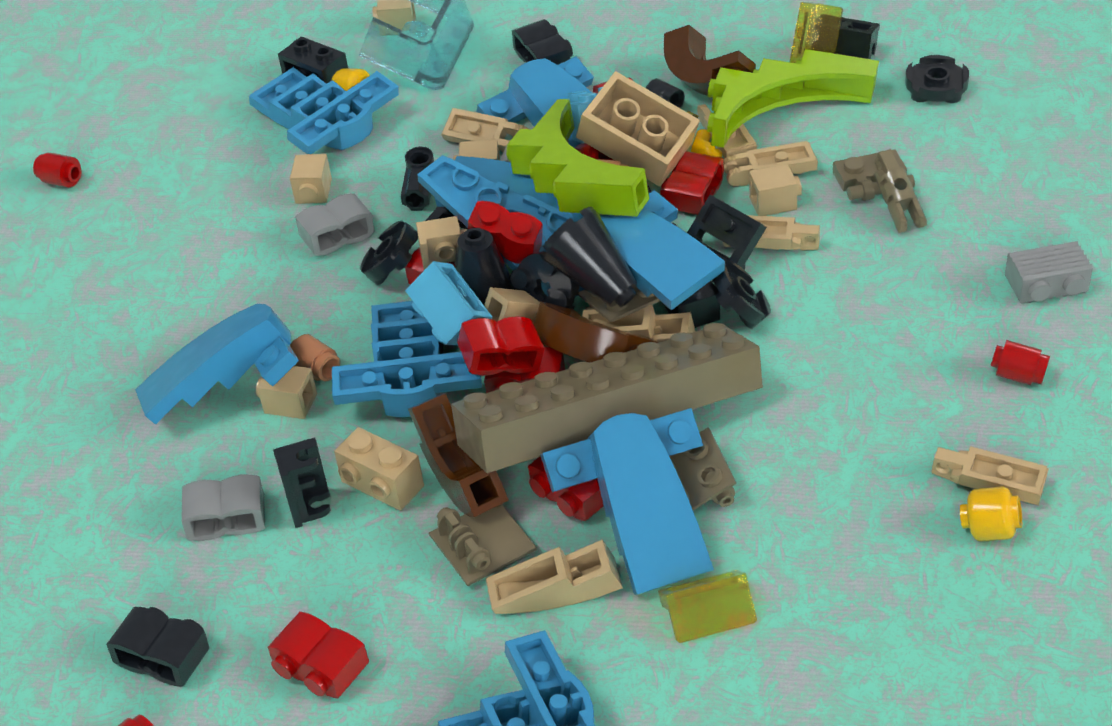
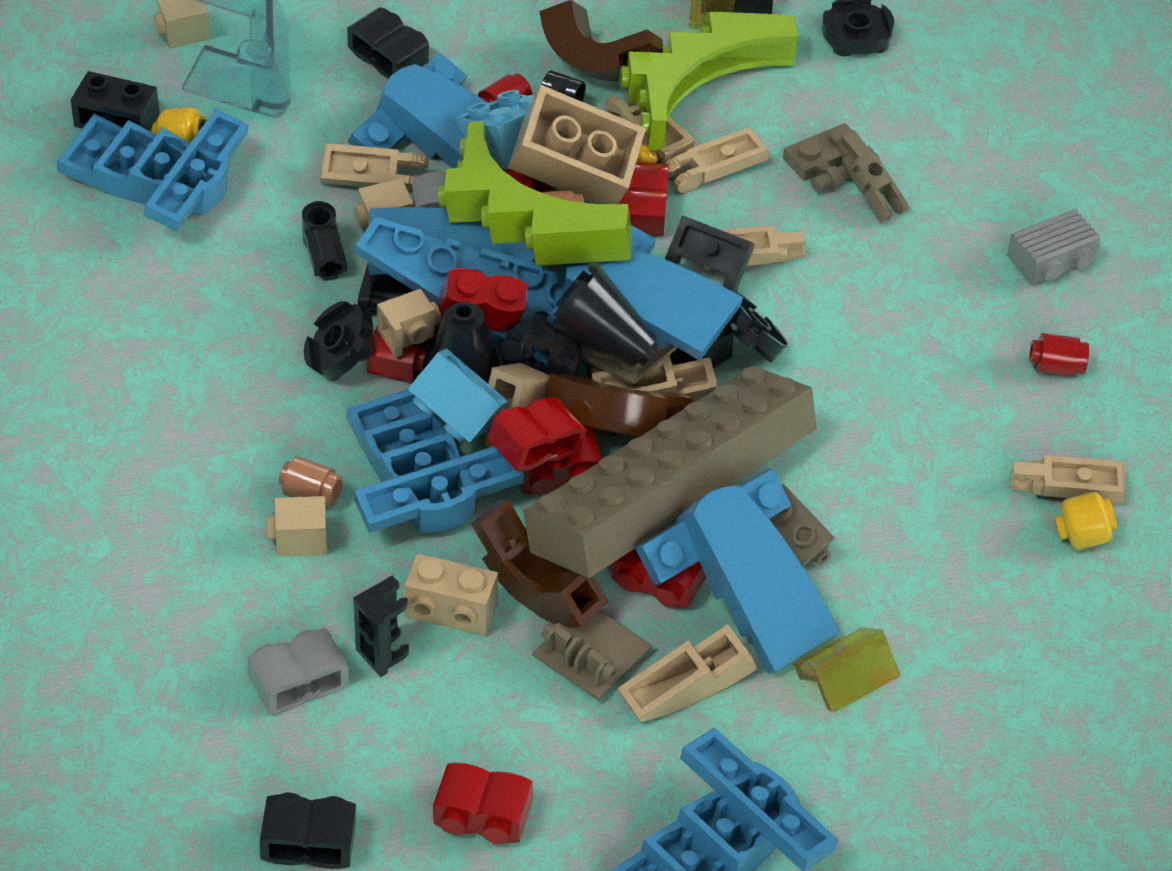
camera: 25 degrees left, 5 degrees up
(222, 356) = (214, 500): dark azure slope -> none
(310, 178) = (191, 260): tan brick -> none
(334, 224) = (251, 314): light grey brick -> none
(774, 190) = (734, 194): tan brick -> none

